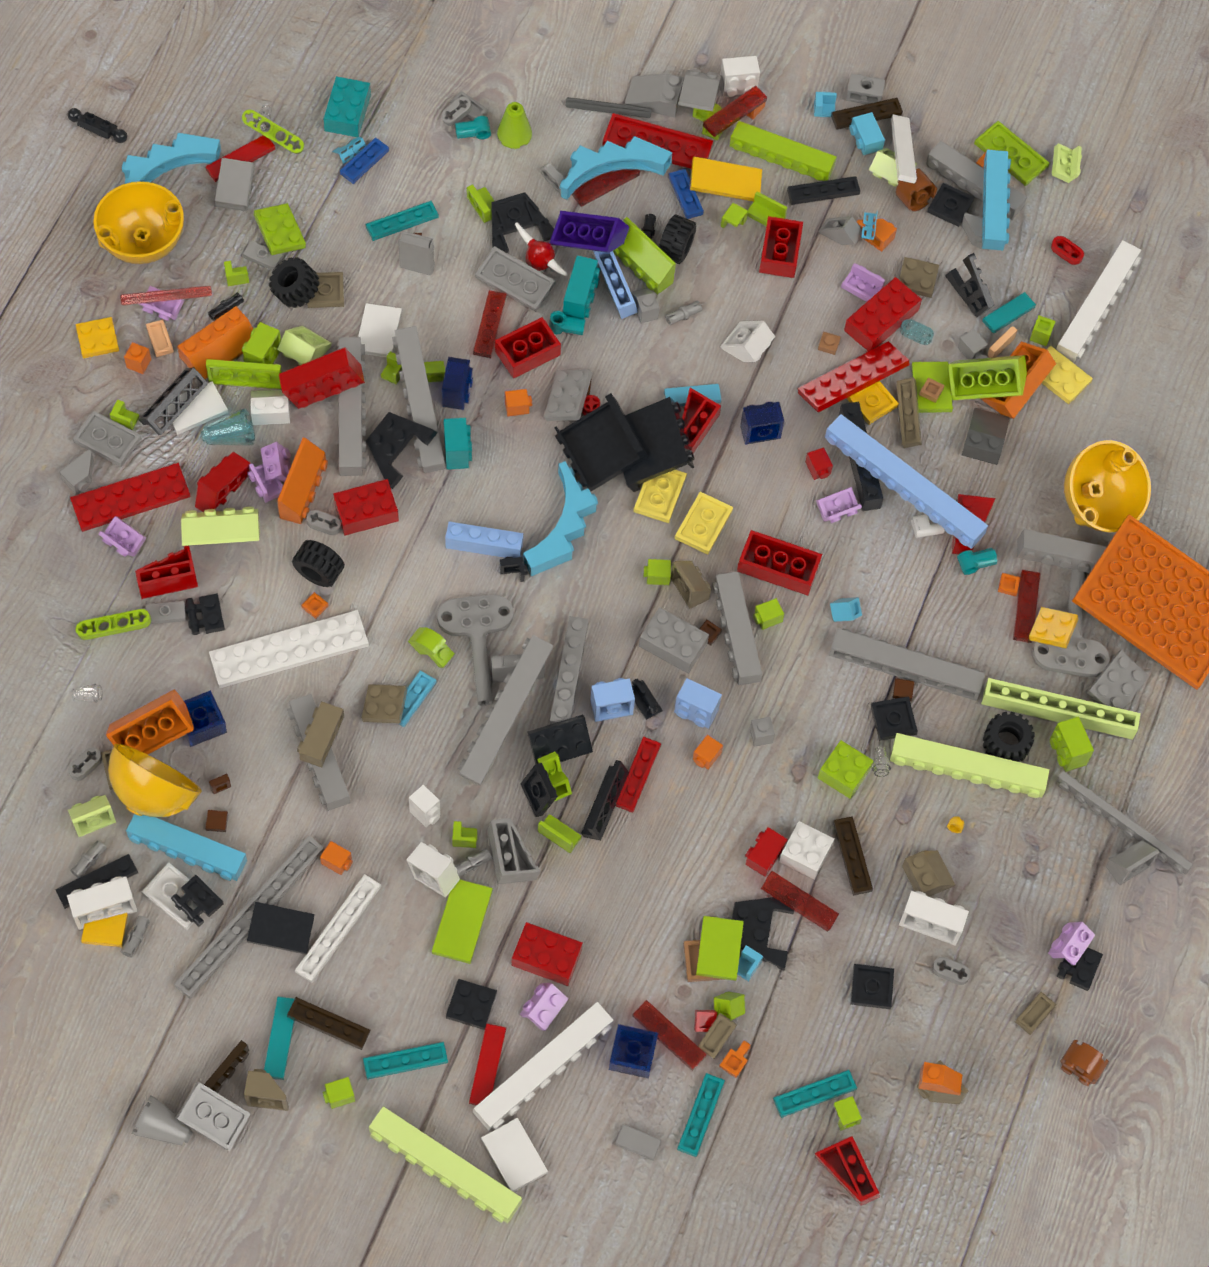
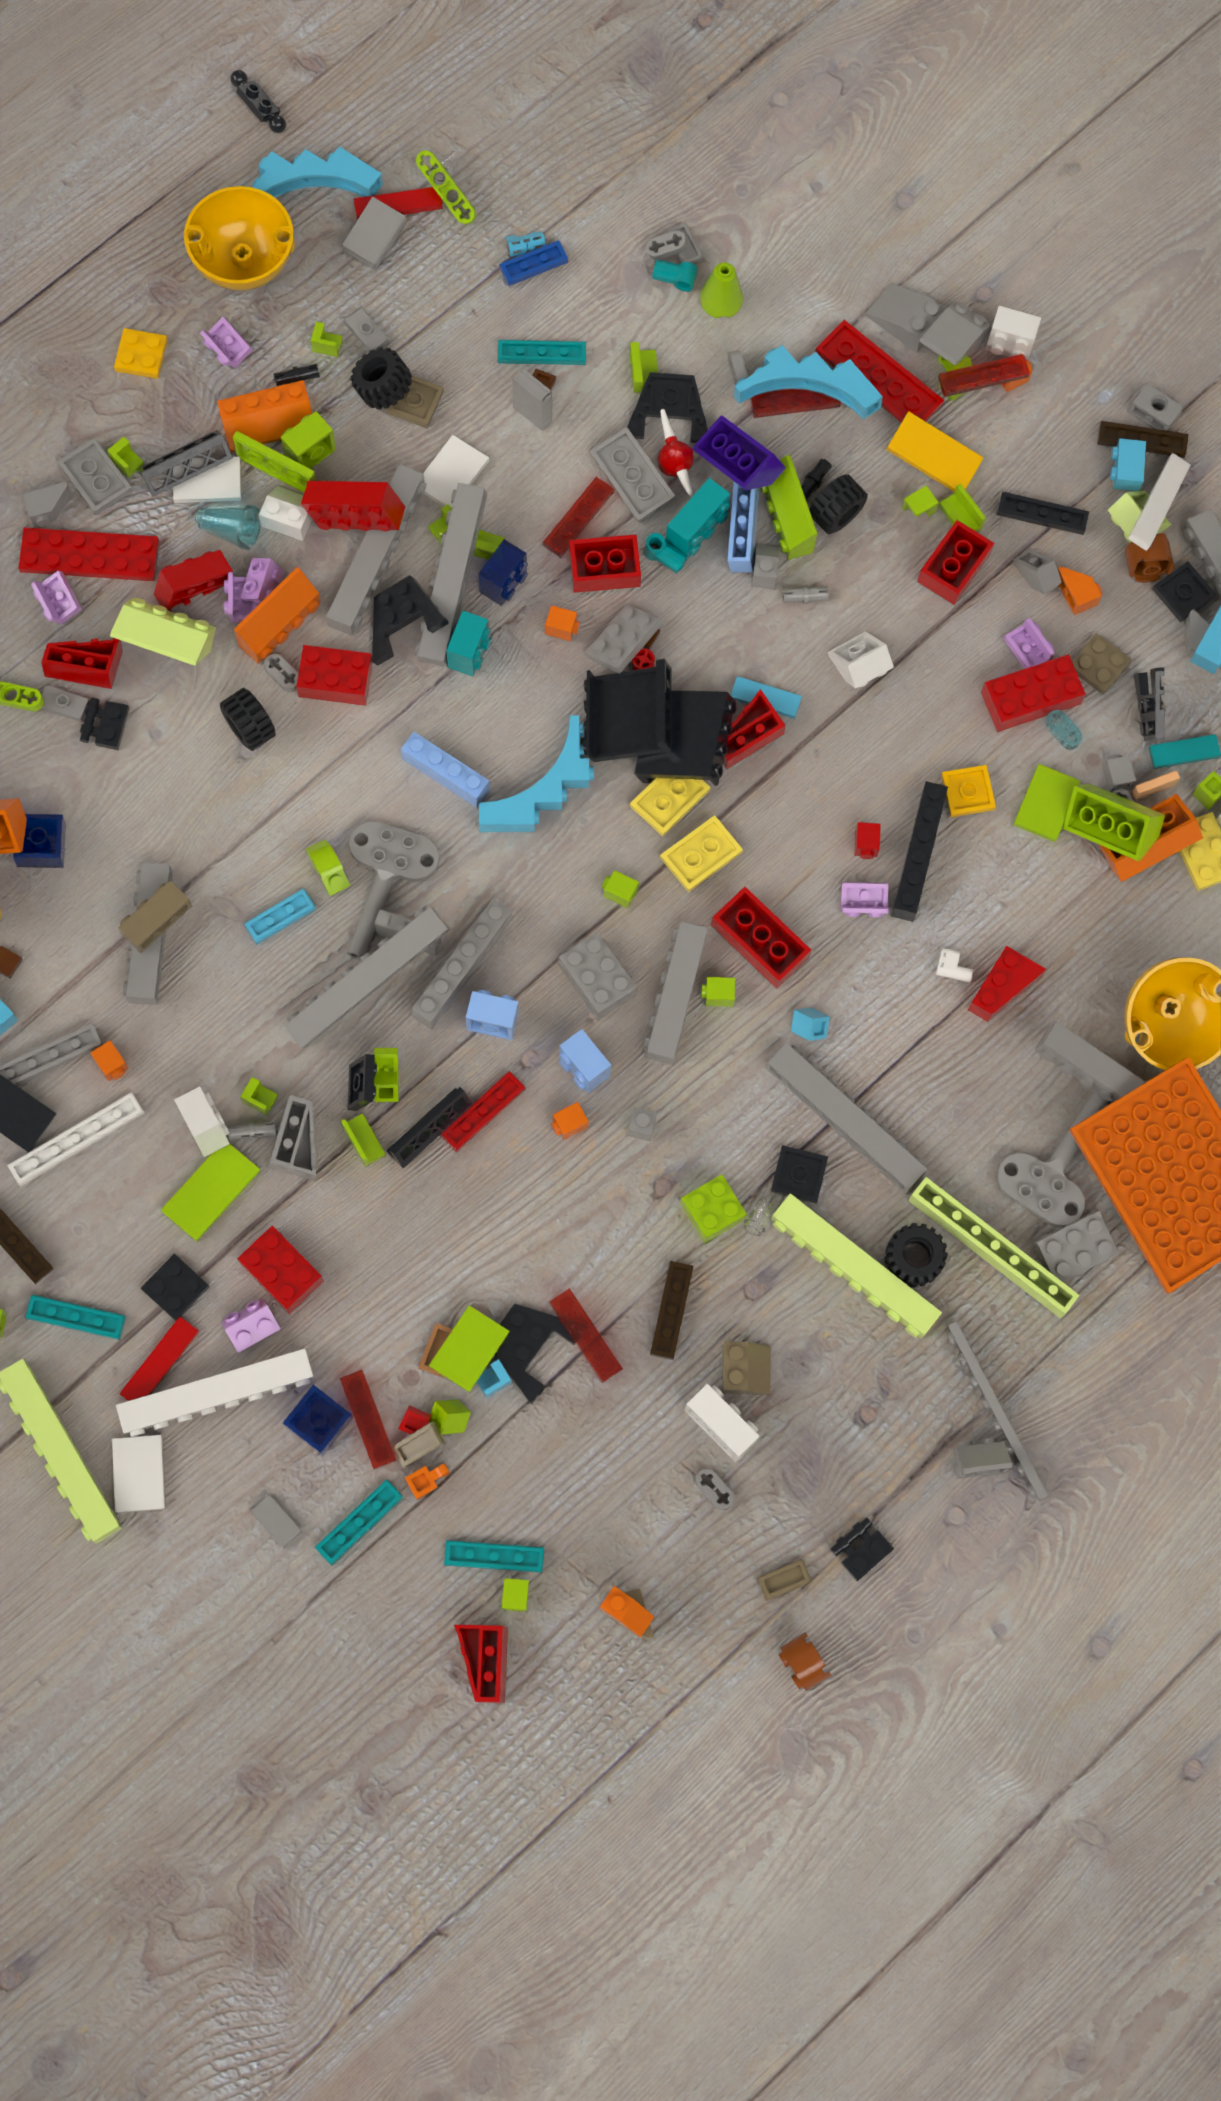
camera: 25 degrees right, 10 degrees up
(137, 358) = (170, 396): orange brick -> none
(159, 338) = (207, 382): light nougat tile -> none
(166, 295) = (233, 335): clear red axle -> none
(220, 783) = (27, 922): reddish brown tile -> none
(279, 229) = (399, 307): lime plate -> none
(288, 649) = (175, 801): white plate -> none
(303, 345) = (359, 456): yellowish green slope -> none
(315, 605) = (227, 764): orange tile -> none
(347, 106) = (545, 190): teal brick -> none
(384, 703) = (245, 909): dark tan plate -> none
(424, 806) = (229, 1046): white brick -> none
(513, 565) = (462, 810): black bracket -> none
(566, 738) = (414, 1036): black plate -> none
(607, 107) = (844, 310): dark grey axle -> none
(645, 700) = (532, 1028): black hinge -> none
(687, 198) = (879, 458): blue plate -> none
(690, 583) = (649, 917): dark tan slope -> none
(711, 629) = (644, 982): reddish brown tile -> none
(762, 422) = (824, 764): clear blue brick -> none
(766, 851) = (577, 1262): red brick -> none
(782, 151) = (1018, 446): lime brick -> none
(806, 850) = (622, 1281): white brick -> none
(824, 104) = (1098, 407): medium azure panel -> none
(829, 343) = (954, 700): medium nougat plate -> none
(853, 376) = (960, 753): red plate -> none
(869, 224) = (1070, 579): medium azure piece -> none
(872, 986) = (616, 1467): black plate -> none
(903, 688) = (828, 1144): reddish brown tile -> none
(906, 481) = (949, 906): light blue brick -> none
(909, 412) = (1002, 823): dark tan plate -> none
(931, 390) = (1042, 808): medium nougat plate -> none
(956, 824) = (806, 1326): yellow hinge -> none
(972, 561) = (983, 1030): teal piece -> none
(986, 436) = (1079, 887): dark grey slope -> none
(1008, 584) = (1013, 1075): orange tile -> none
(1026, 605) = (1020, 1109): clear red plate -> none
(1053, 627) = (1035, 1149): yellow plate -> none
(1071, 744) = (983, 1294): lime brick -> none
(1072, 942) = (864, 1520): lavender bracket -> none

